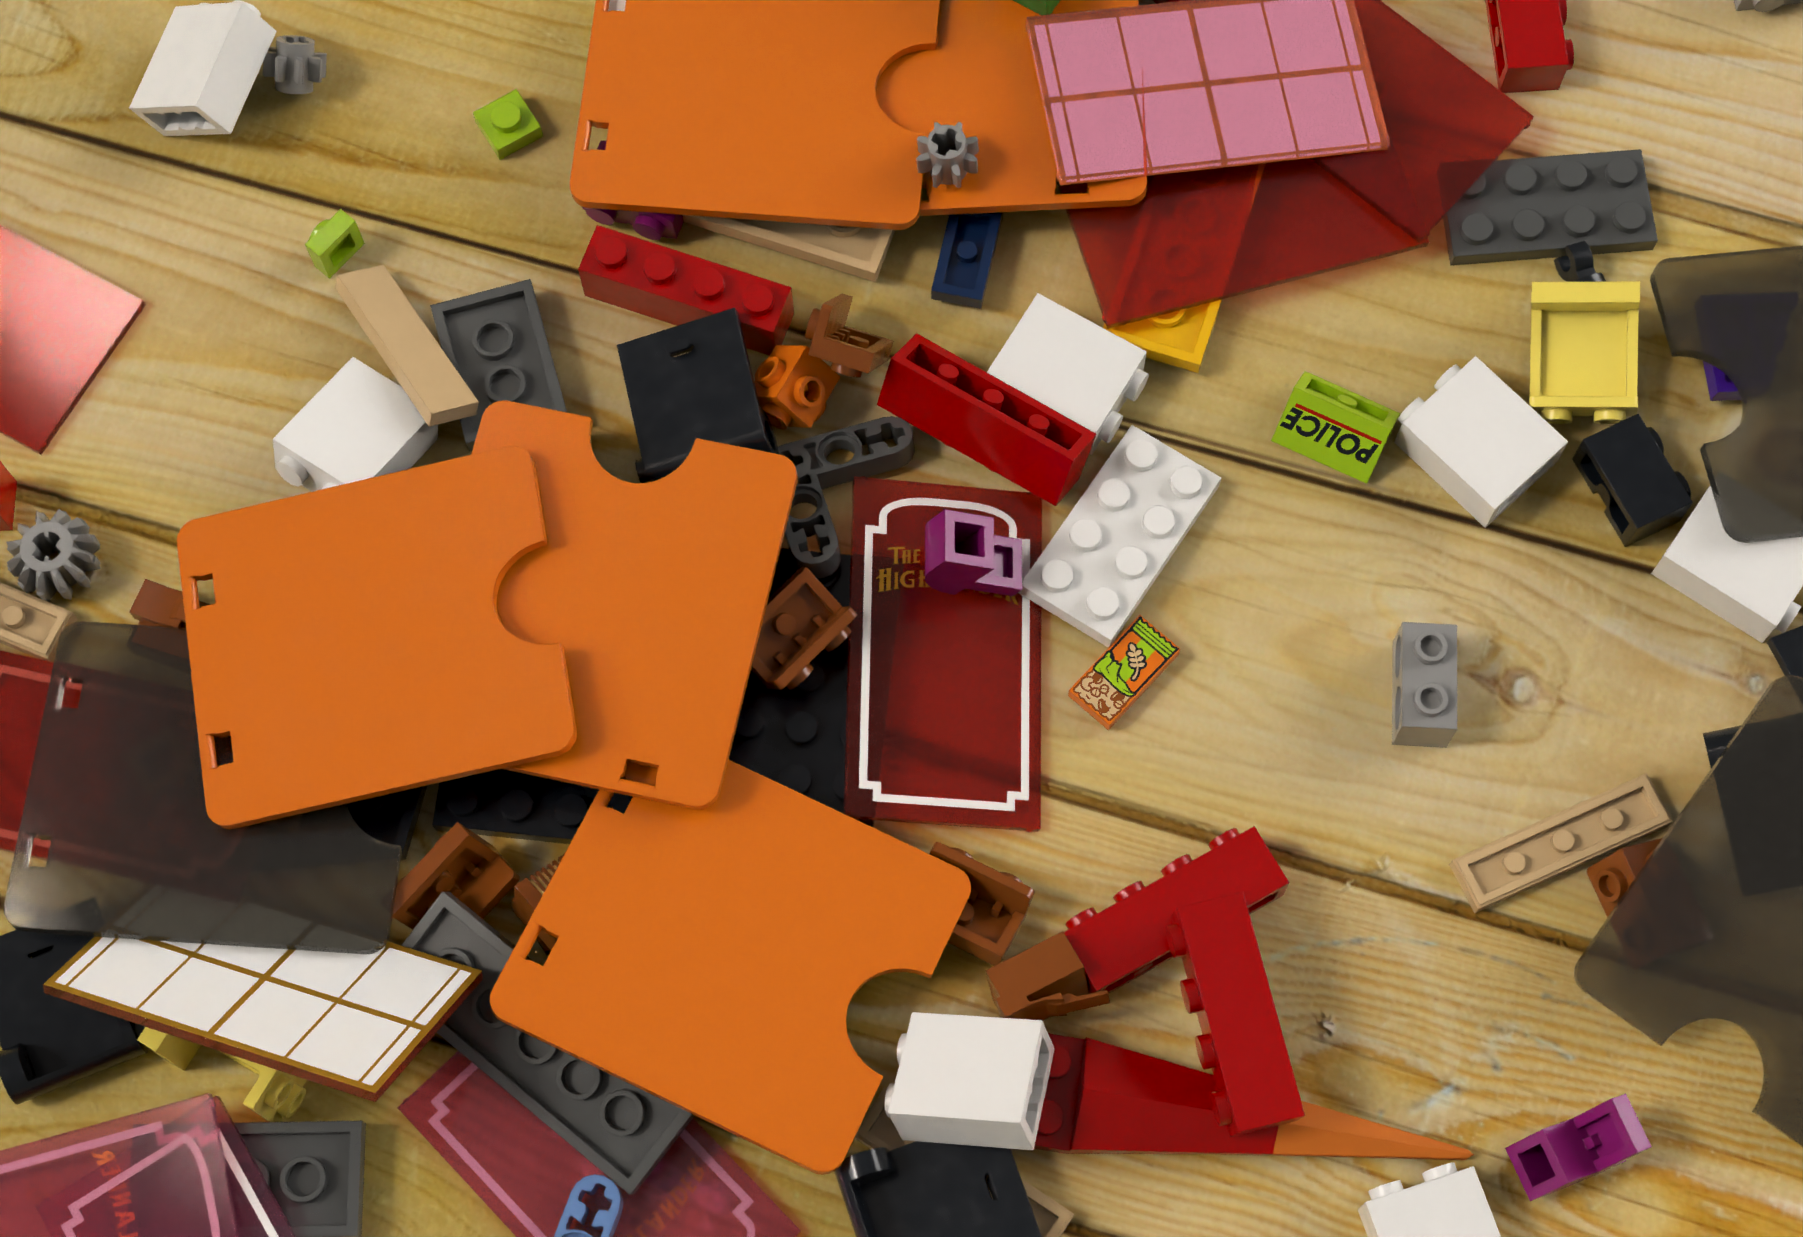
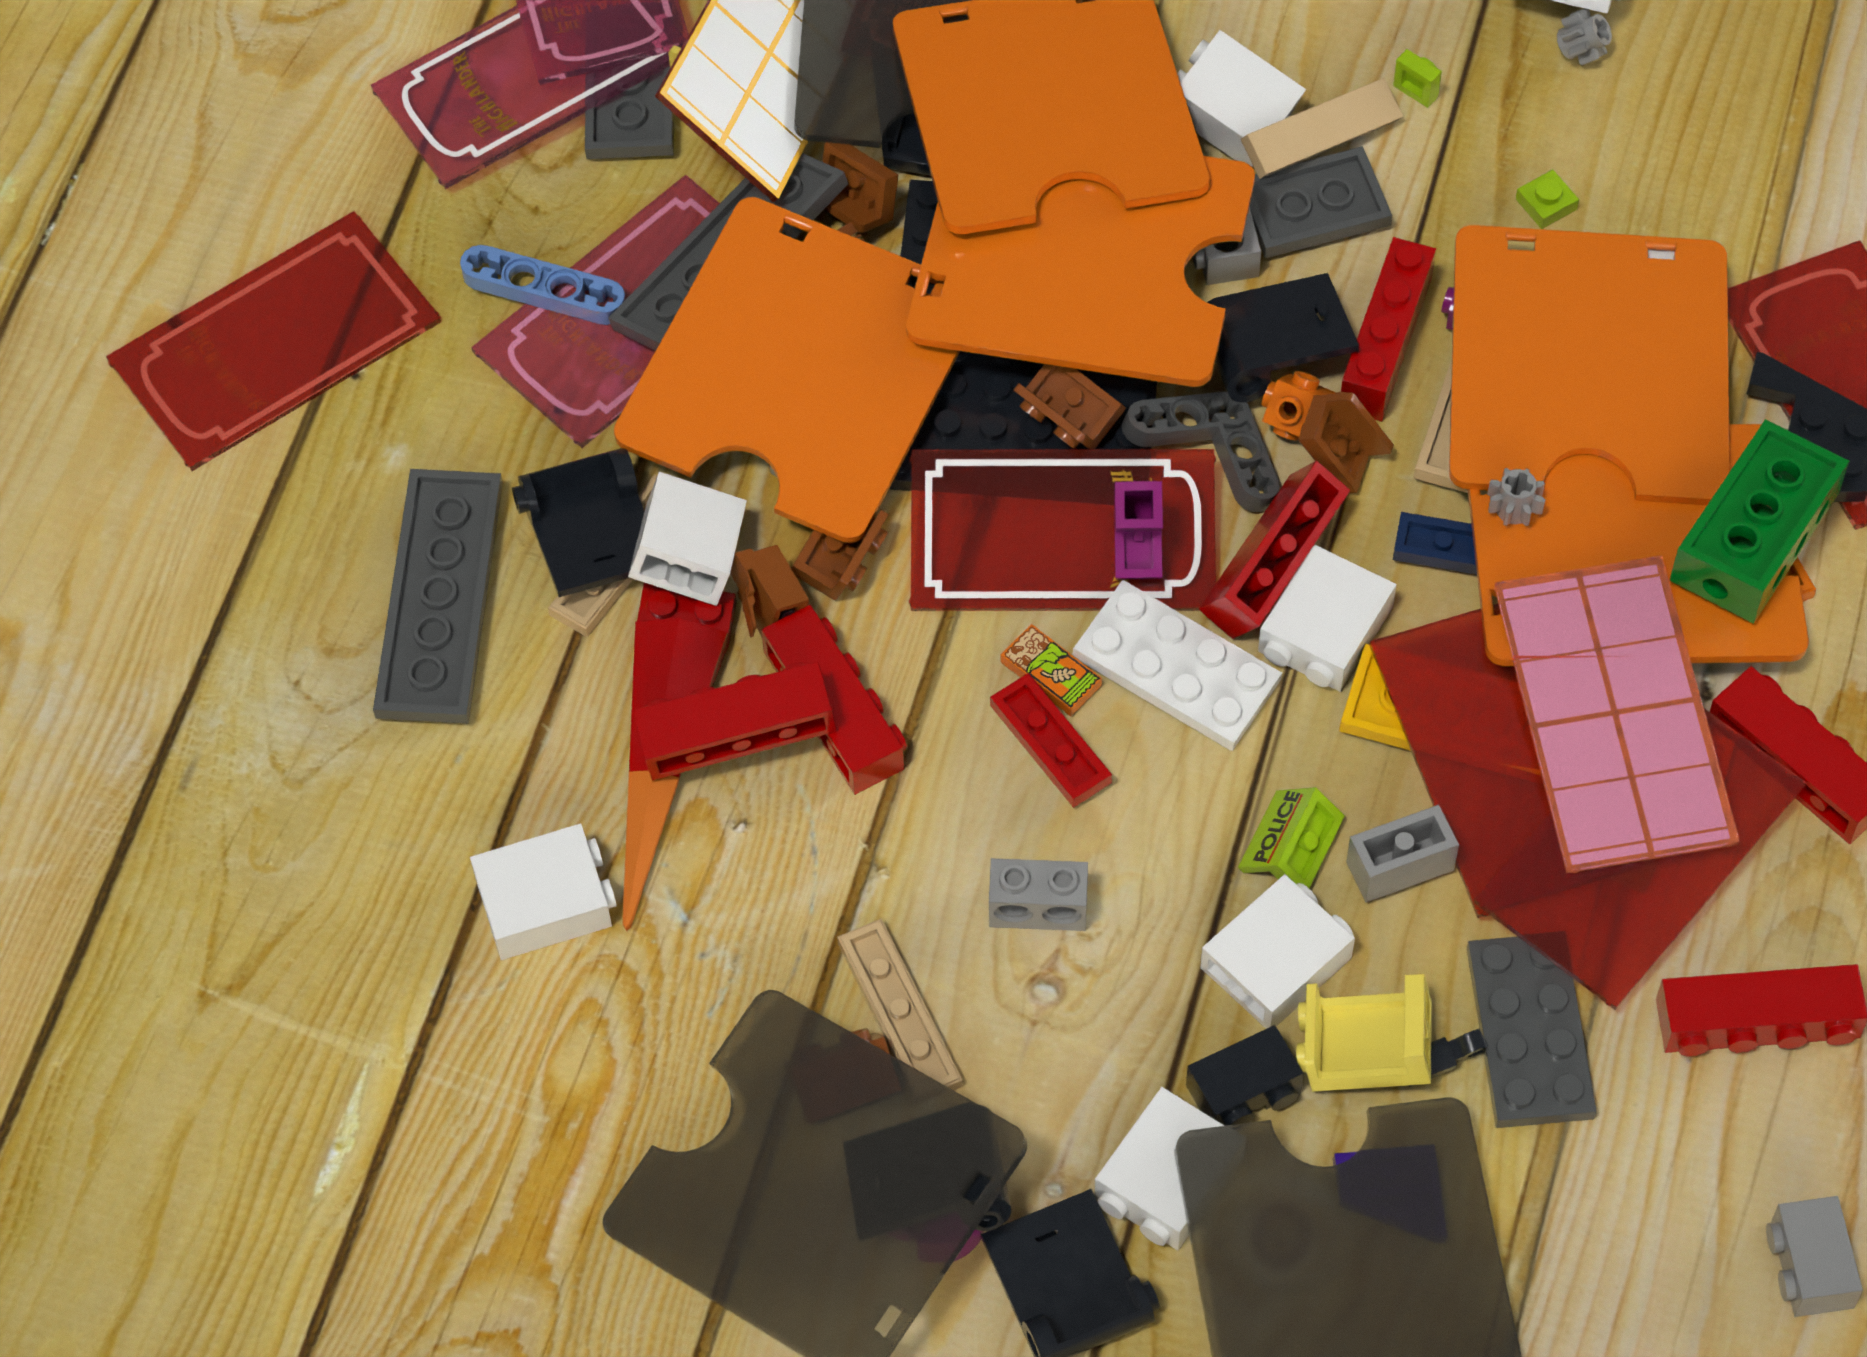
camera: 90 degrees right, 10 degrees down
(1220, 671) = (1050, 740): none -> red plate
(1366, 307) = (1402, 853): none -> light grey brick
(1578, 1147) = (622, 993): magenta brick -> none

